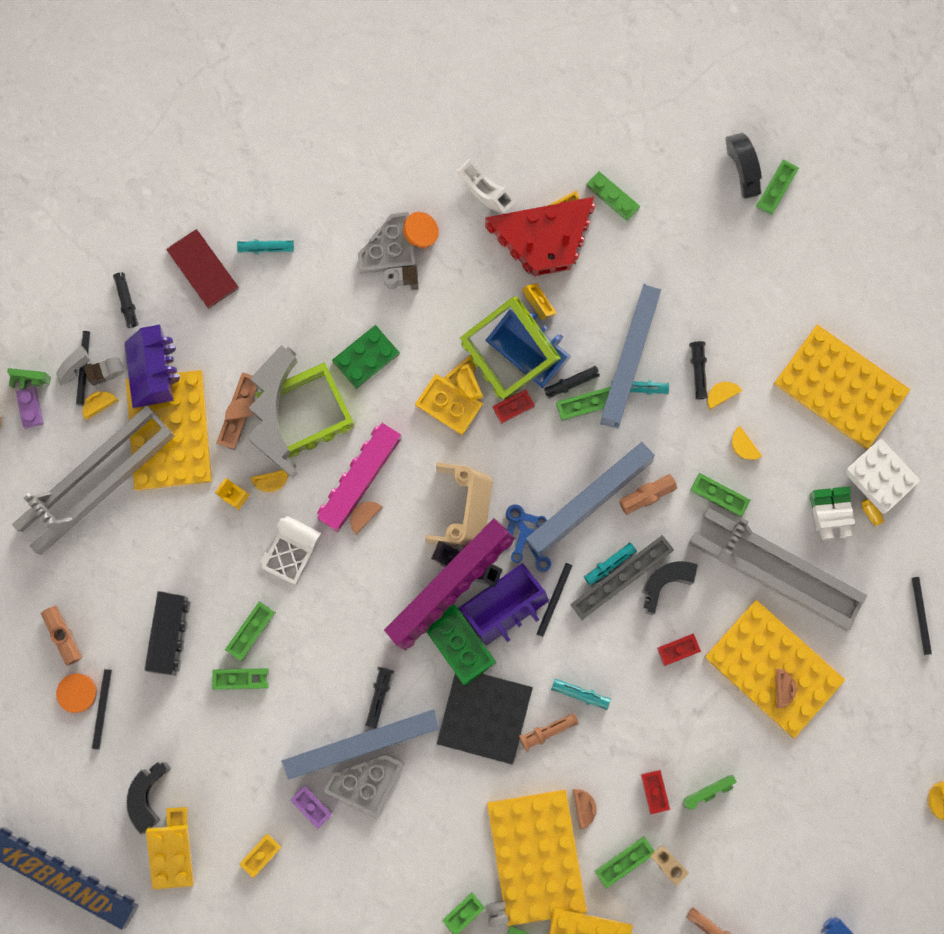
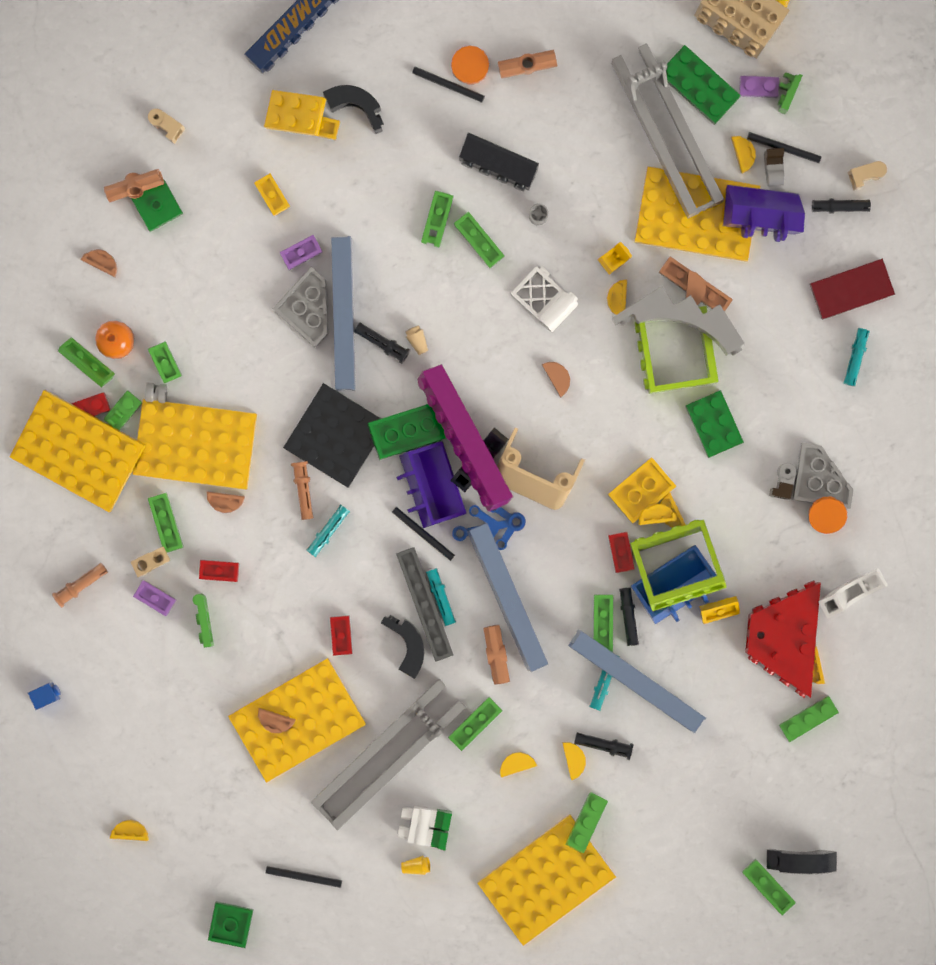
camera: 115 degrees right, 10 degrees up
(41, 461) = (700, 85): none -> green plate
(67, 371) = (784, 131): light grey slope -> none
(85, 281) = (866, 172): none -> tan leg
(209, 580) = (538, 210): none -> light grey wheel
(359, 477) = (596, 385): dark pink brick -> none
(366, 662) = (417, 339): none -> tan cone
(703, 849) = (154, 598): none -> medium lavender plate
(777, 364) = (586, 822): none -> bright green plate
(882, 476) = (446, 885): white plate -> none

